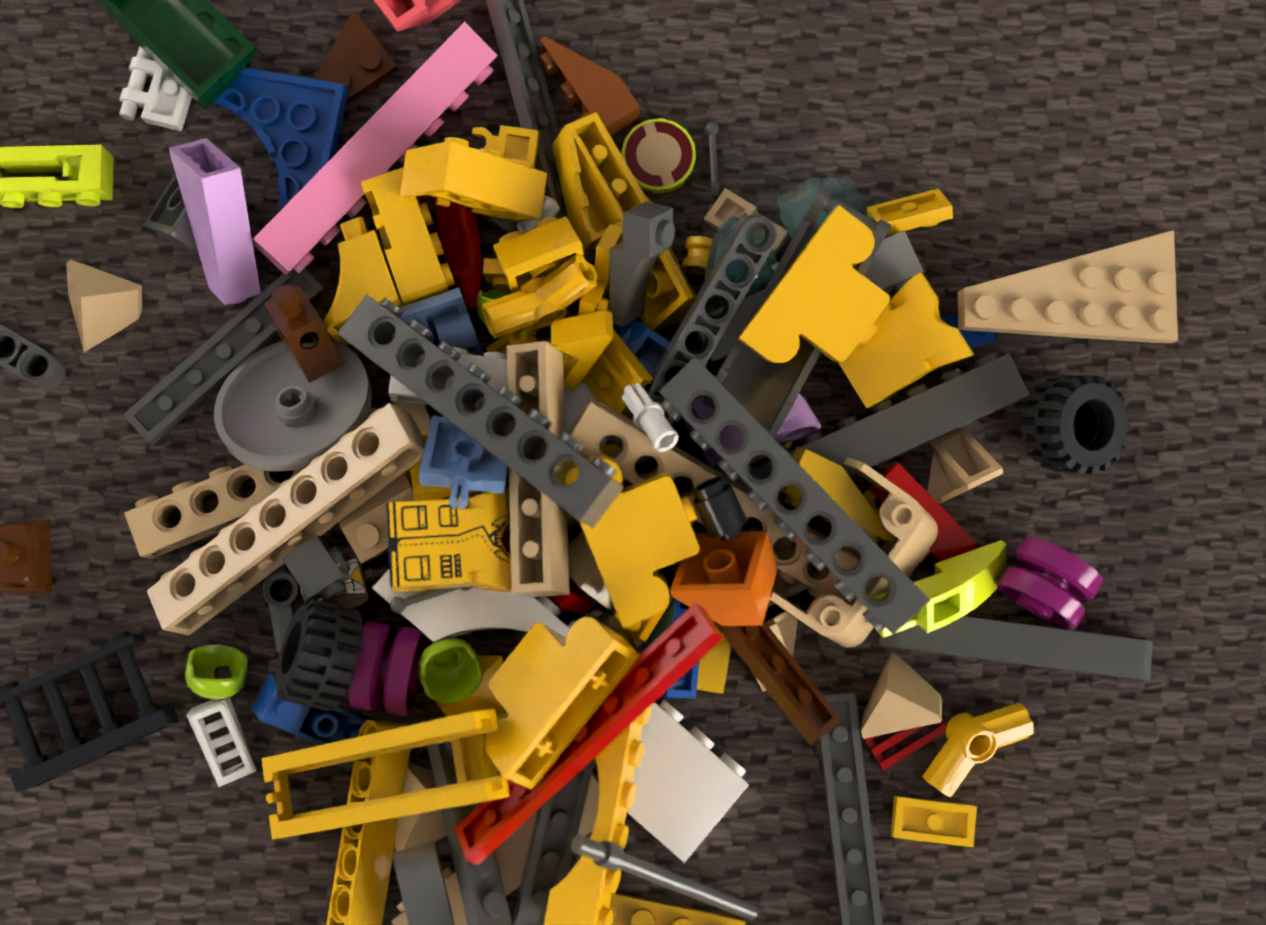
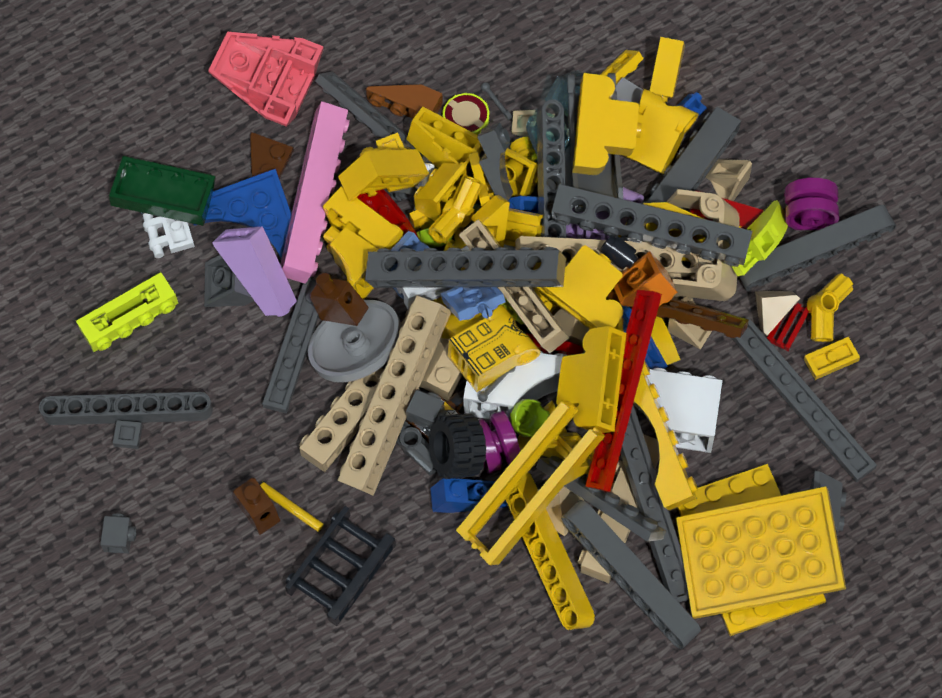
camera: 25 degrees left, 15 degrees down
(75, 582) = (292, 507): none -> yellow bar
(101, 302) = (209, 356): tan slope -> none
(201, 667) = (402, 503): lime hair -> none
(208, 746) = (421, 545): white slope -> none
(612, 857) = (675, 441): dark grey bar -> none
(650, 417) = (554, 228): white axle -> none
(974, 253) = (667, 67): none -> yellow slope
(1098, 295) = (744, 54): tan wing -> none
(1099, 429) = (773, 121): black tyre -> none

